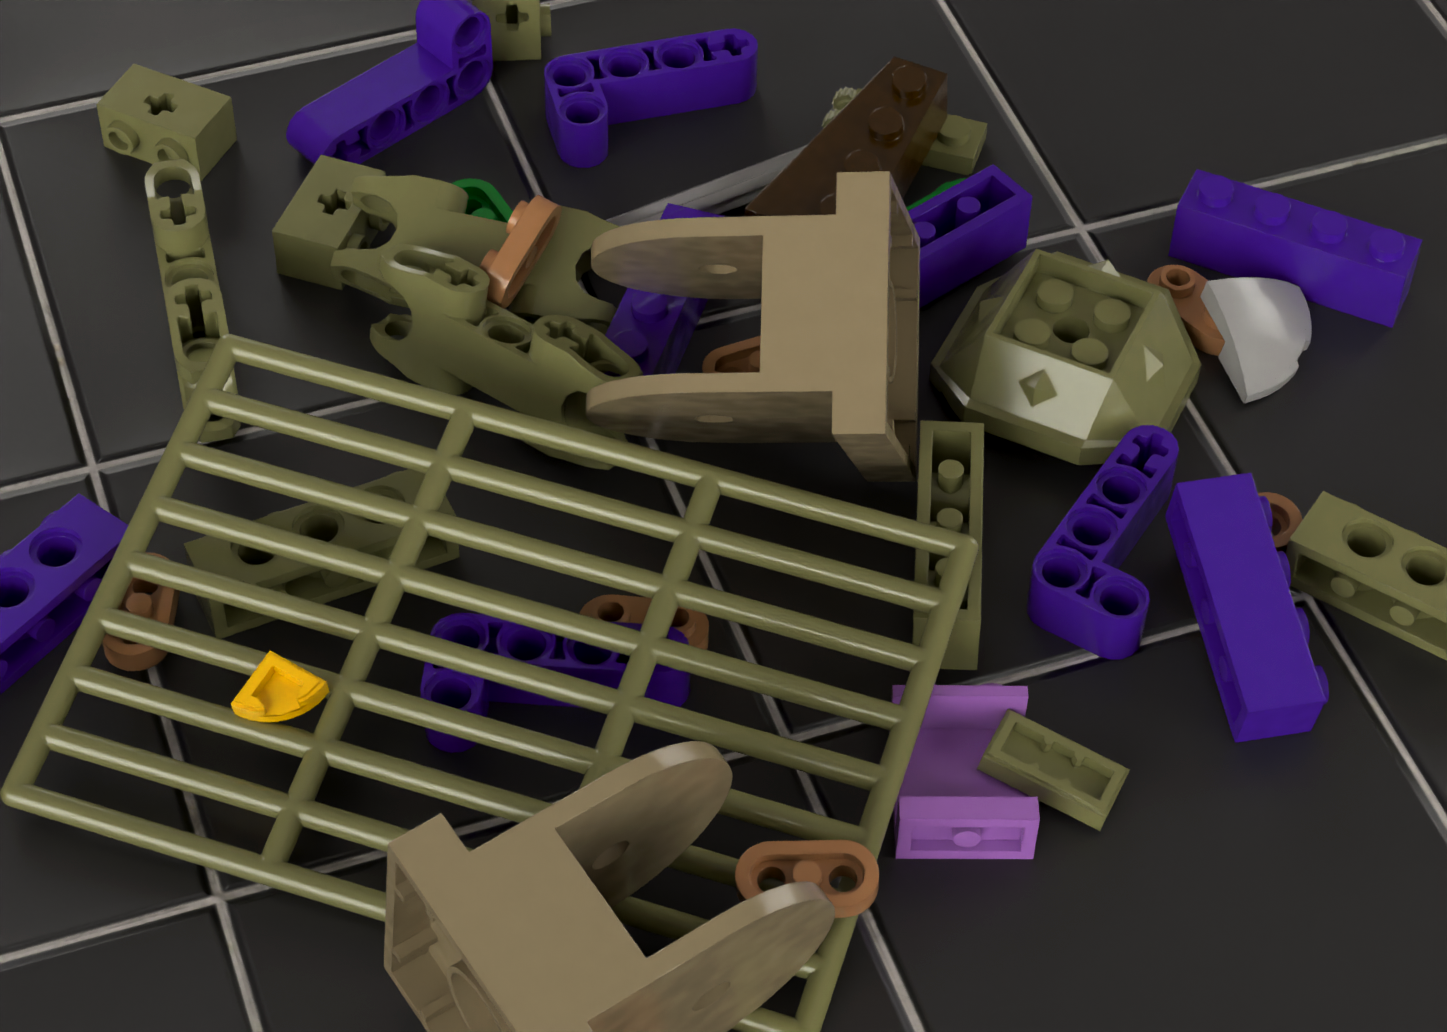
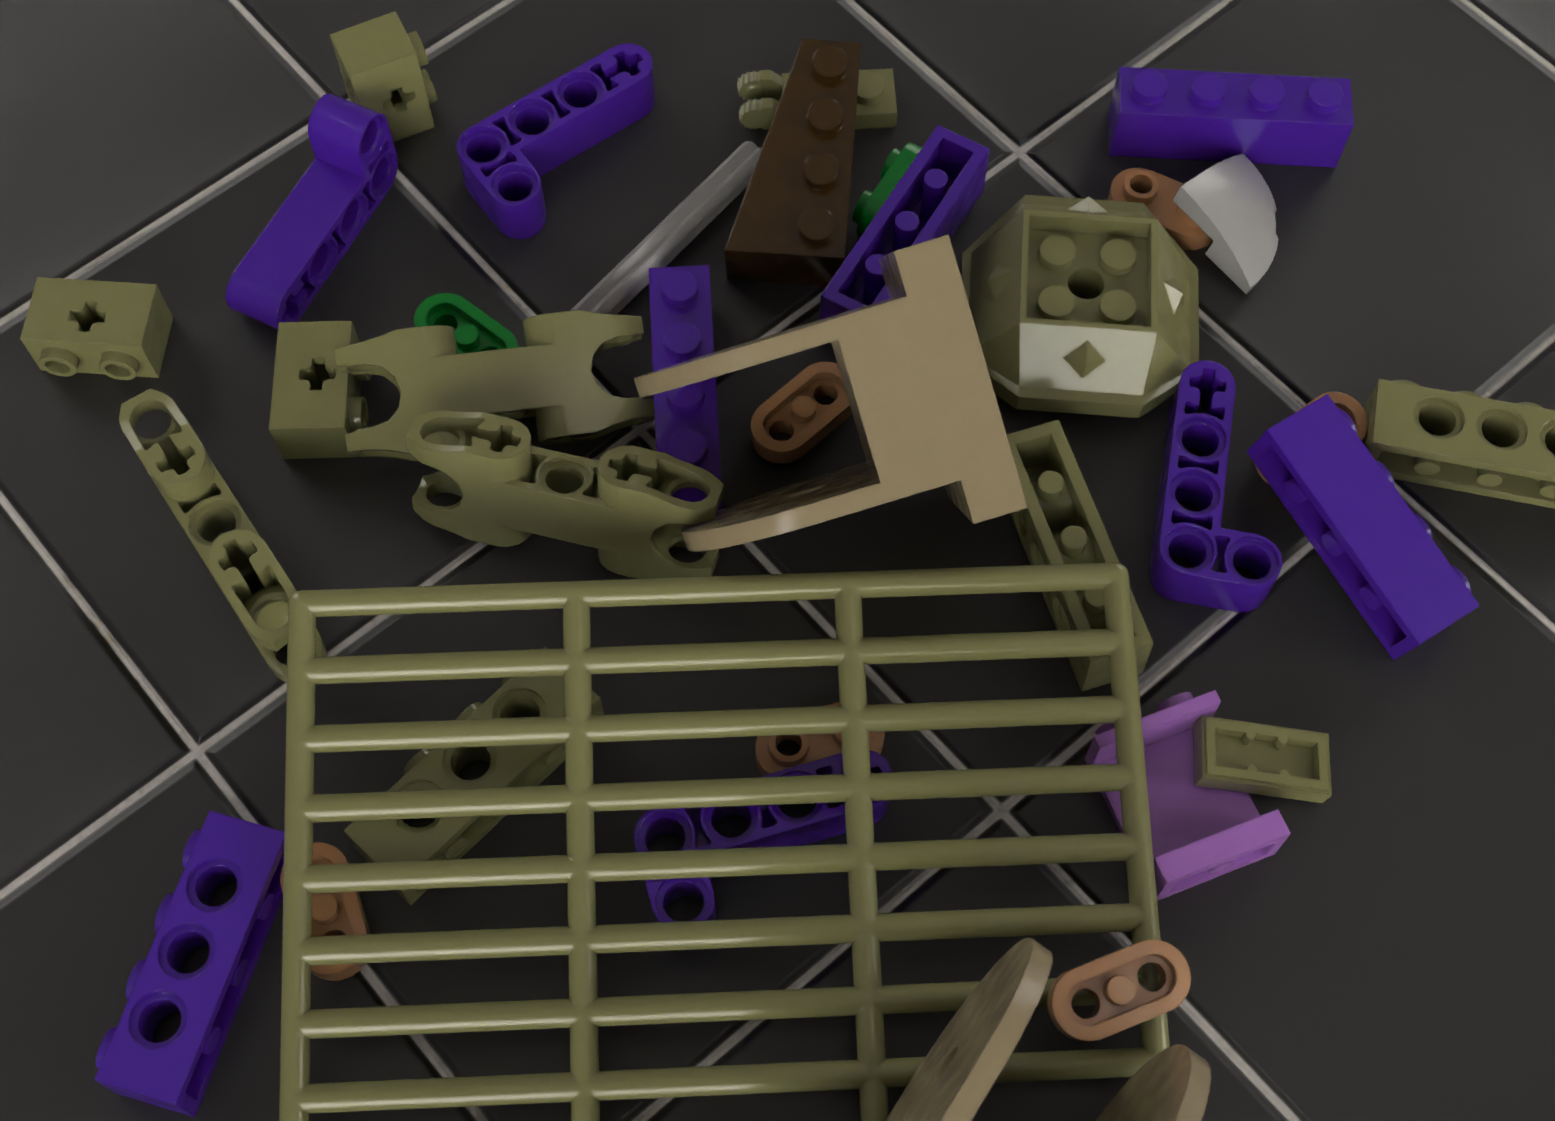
camera: 20 degrees left, 15 degrees up
(278, 691) = (521, 975): yellow tile -> none
(529, 234) = (538, 352): medium nougat plate -> none

